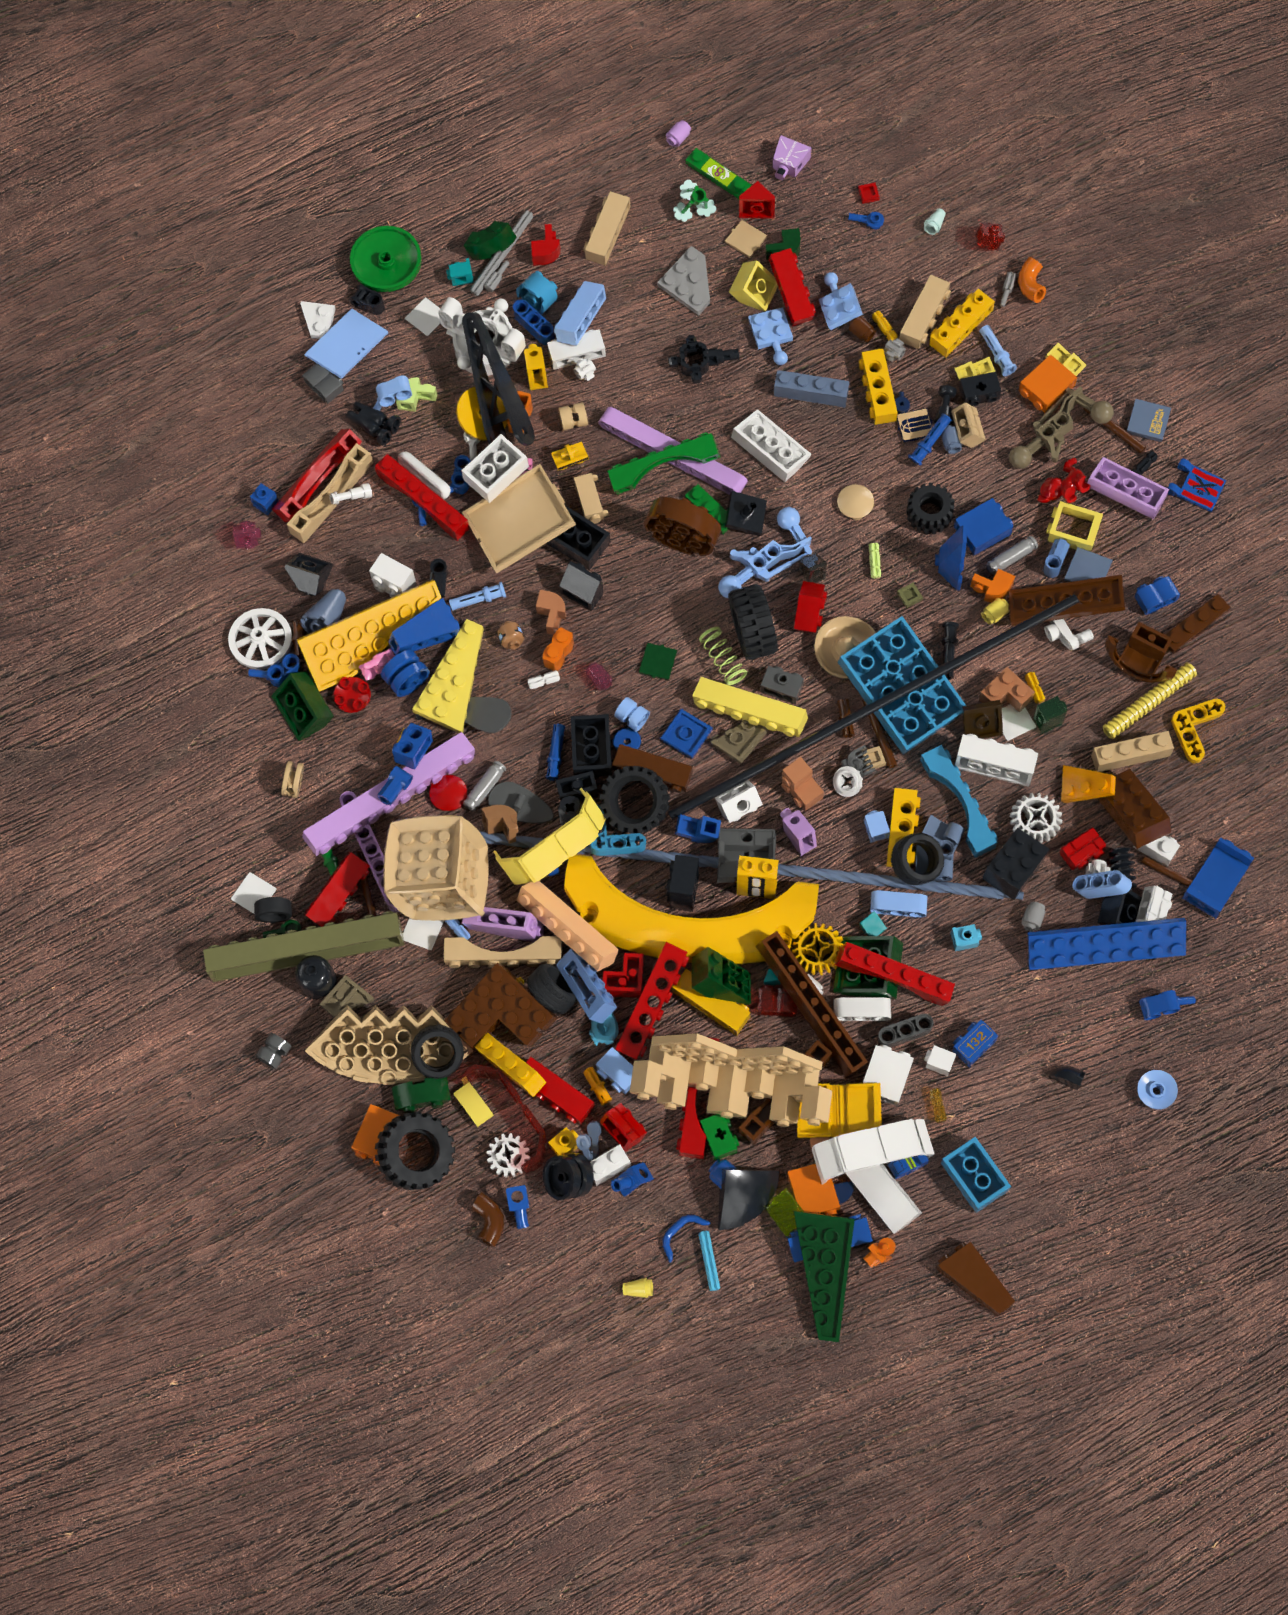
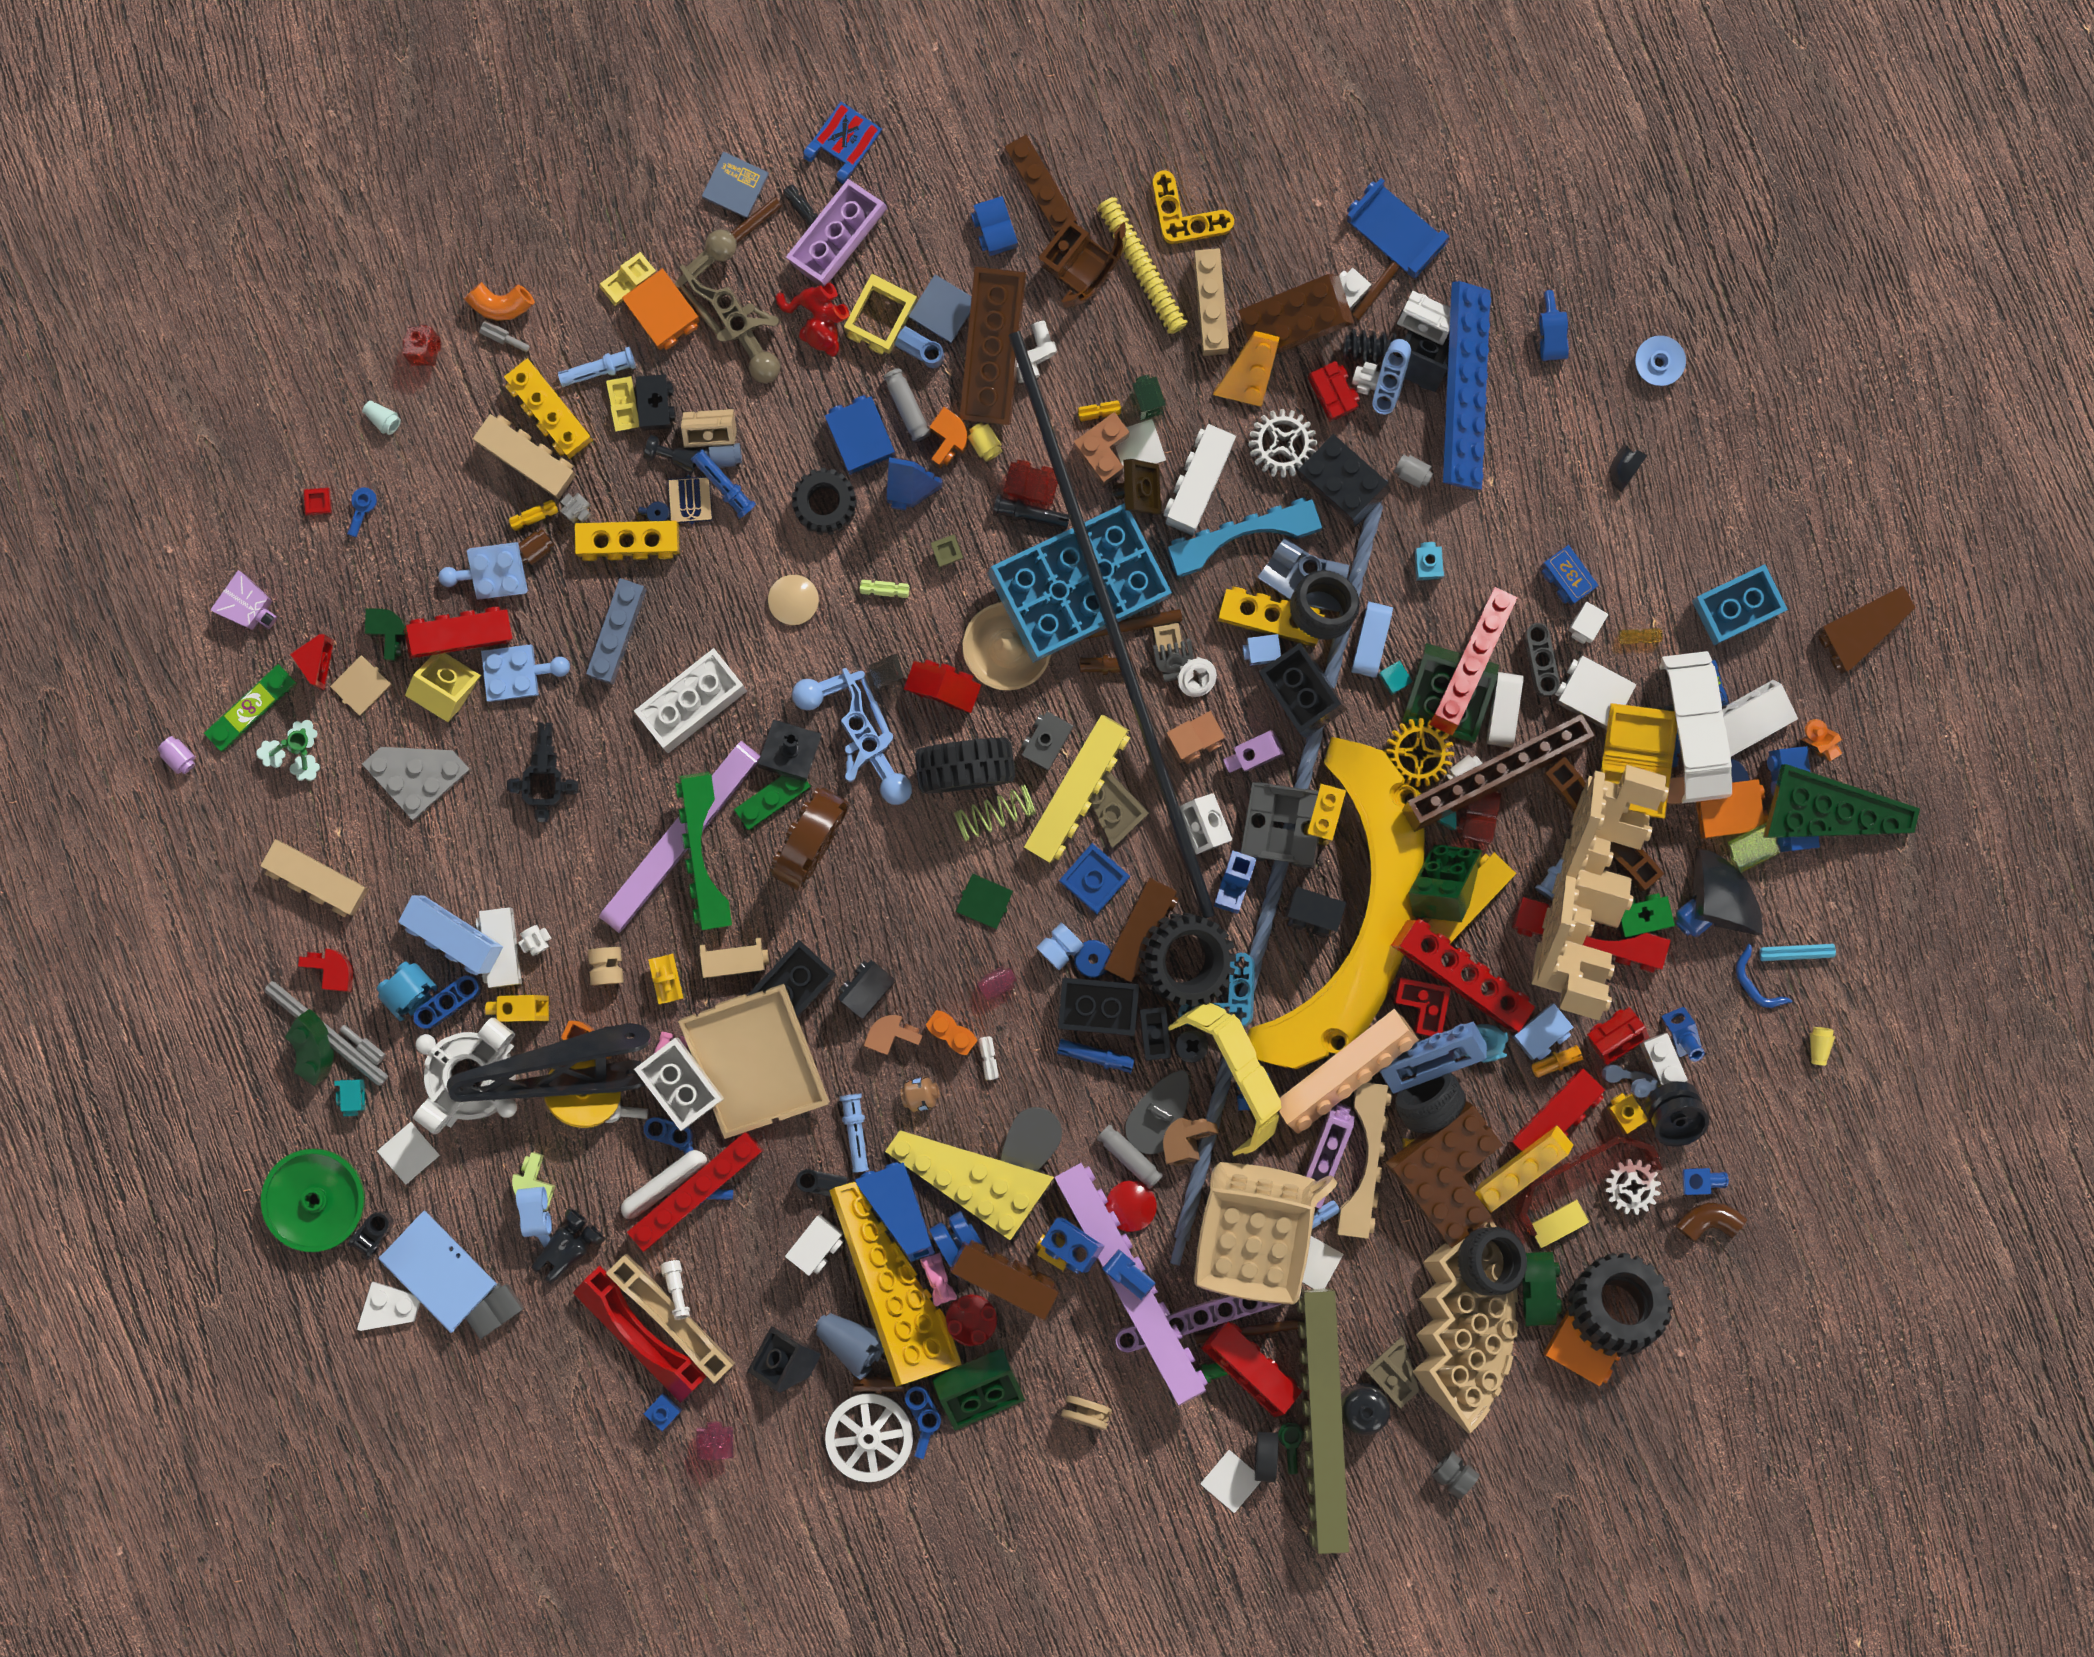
camera: 90 degrees left, 15 degrees up
(376, 710) = (1005, 1279): none -> reddish brown piece
(850, 854) = (1303, 690): none -> black brick
(970, 638) = (1031, 483): none -> clear red brick

